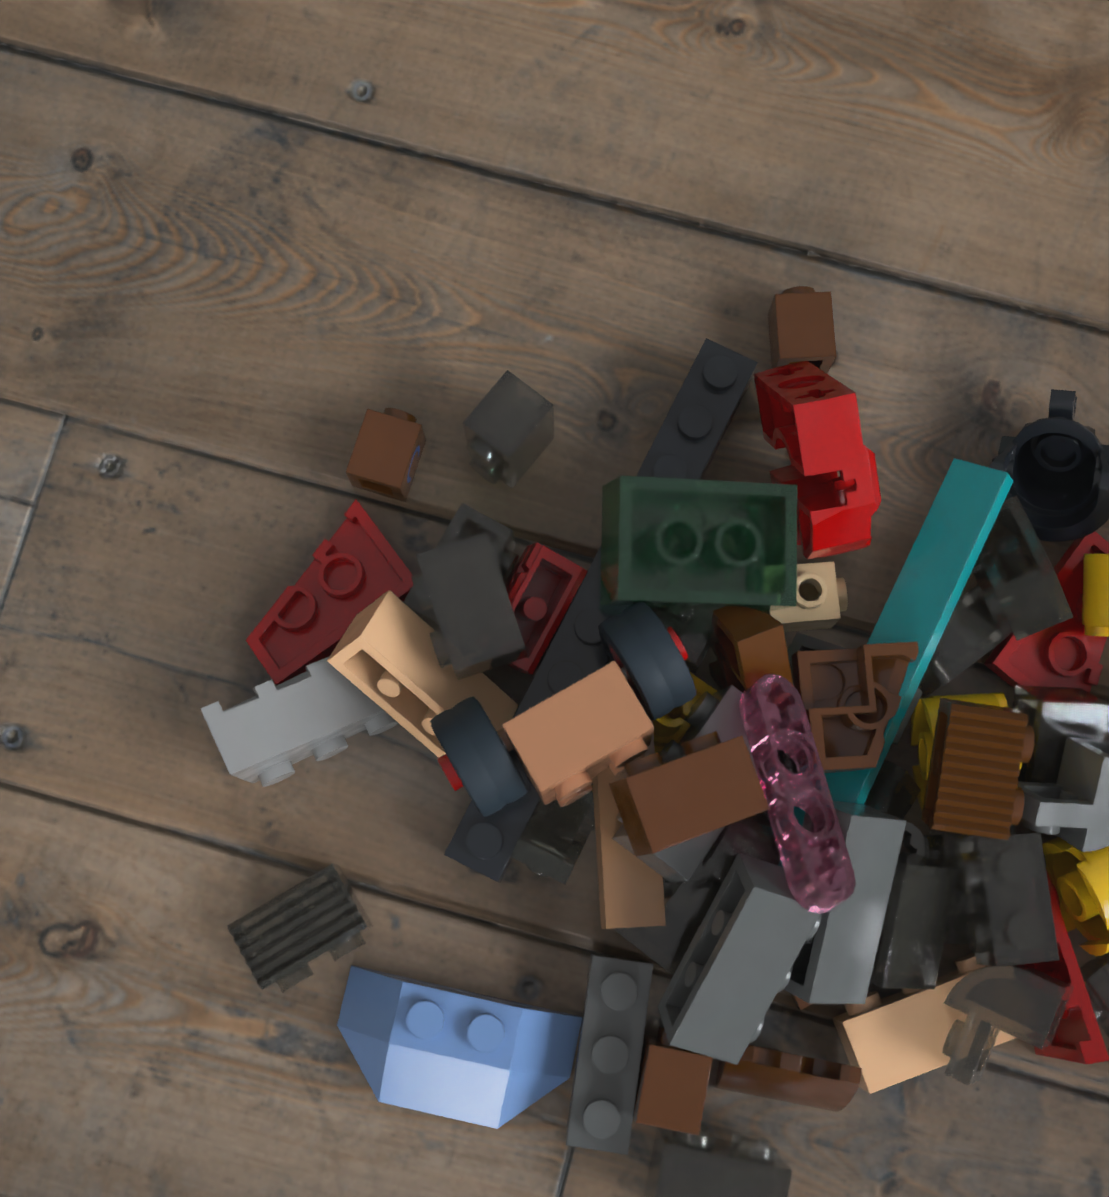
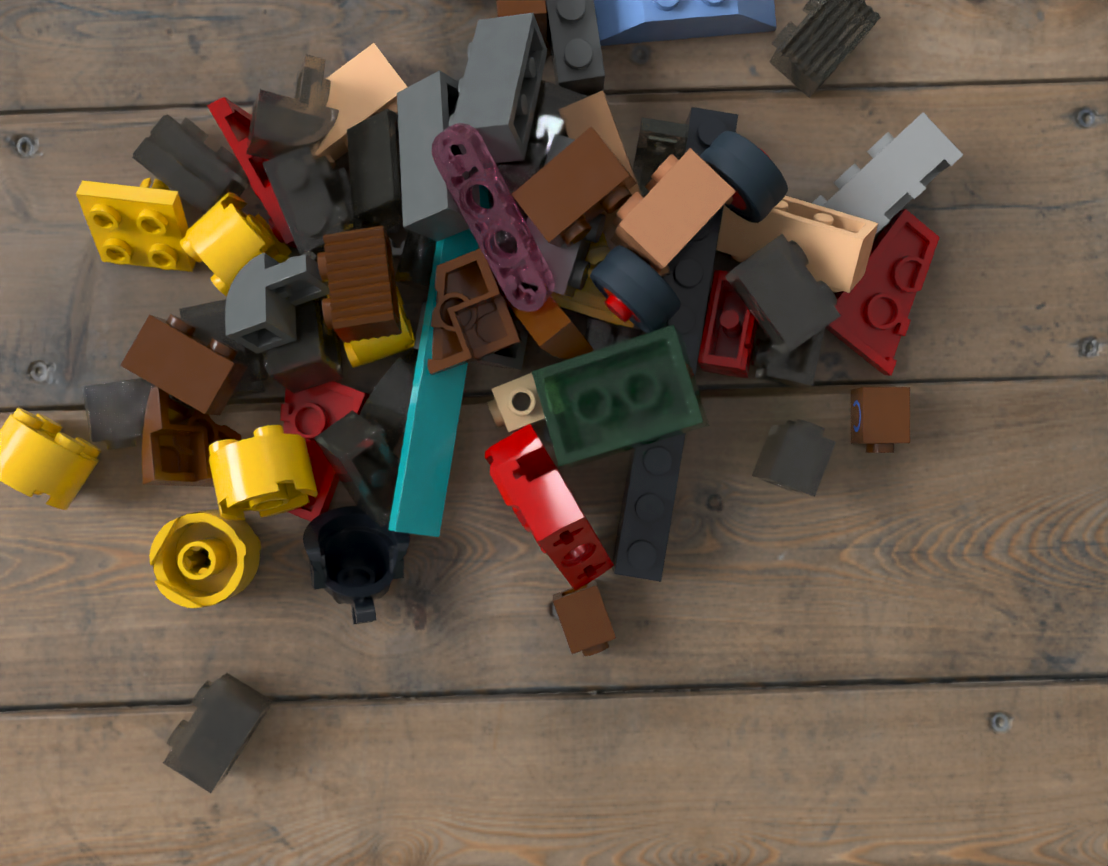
camera: 160 degrees right, 10 degrees up
(790, 1078) = (447, 40): reddish brown slope -> none

